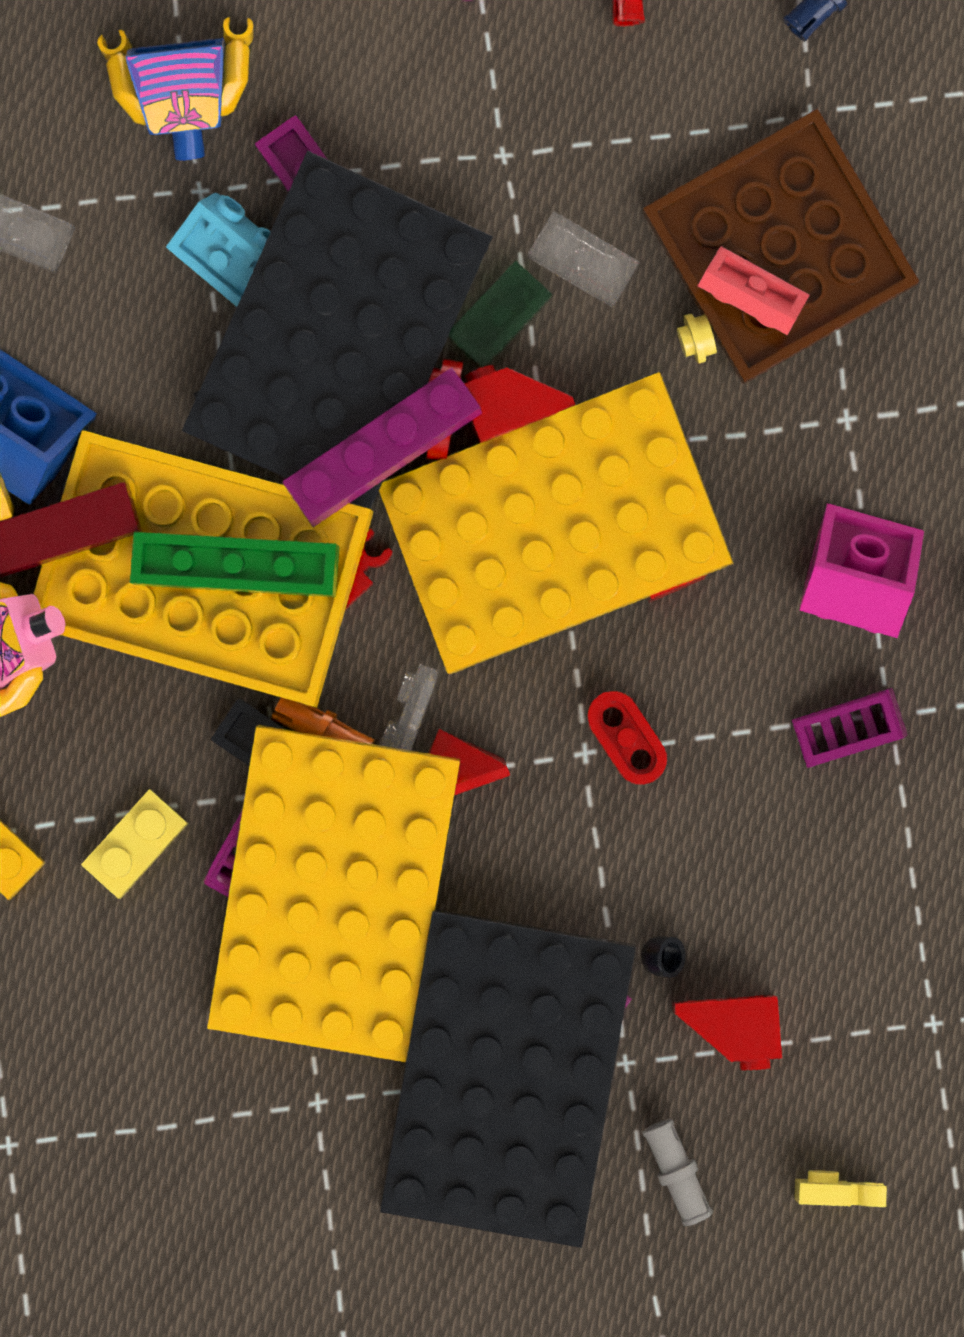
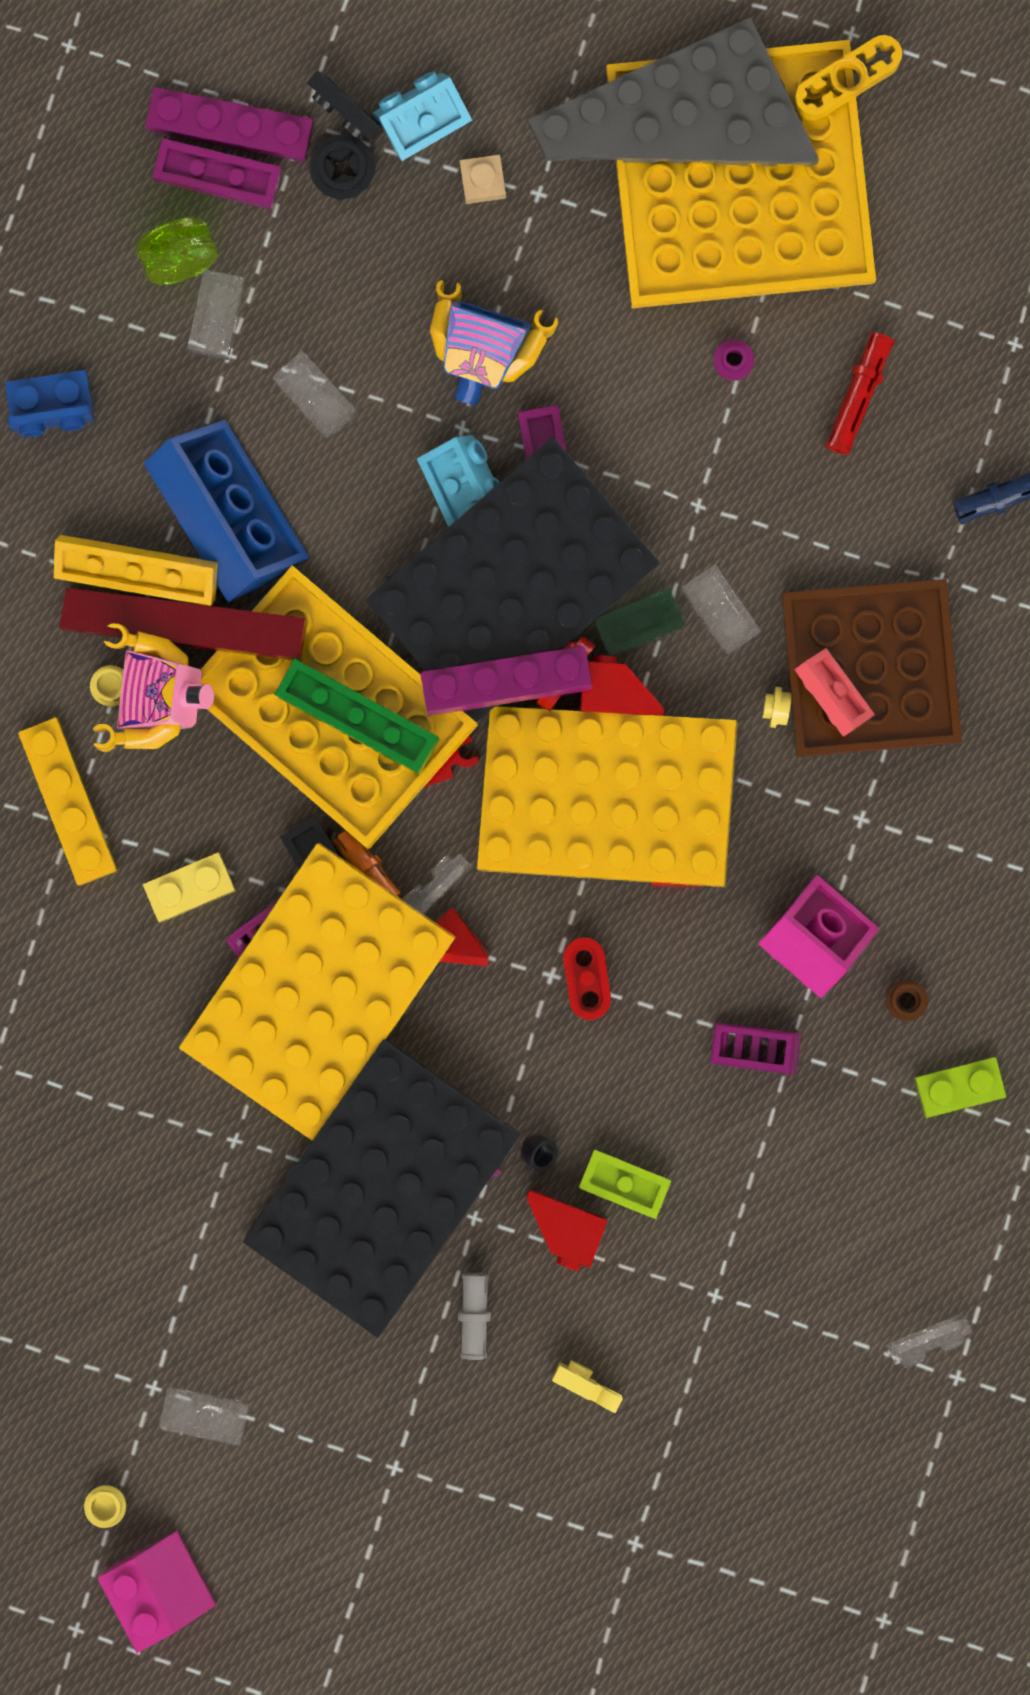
camera: 30 degrees right, 0 degrees up
(776, 946) = (625, 1184): none -> lime plate

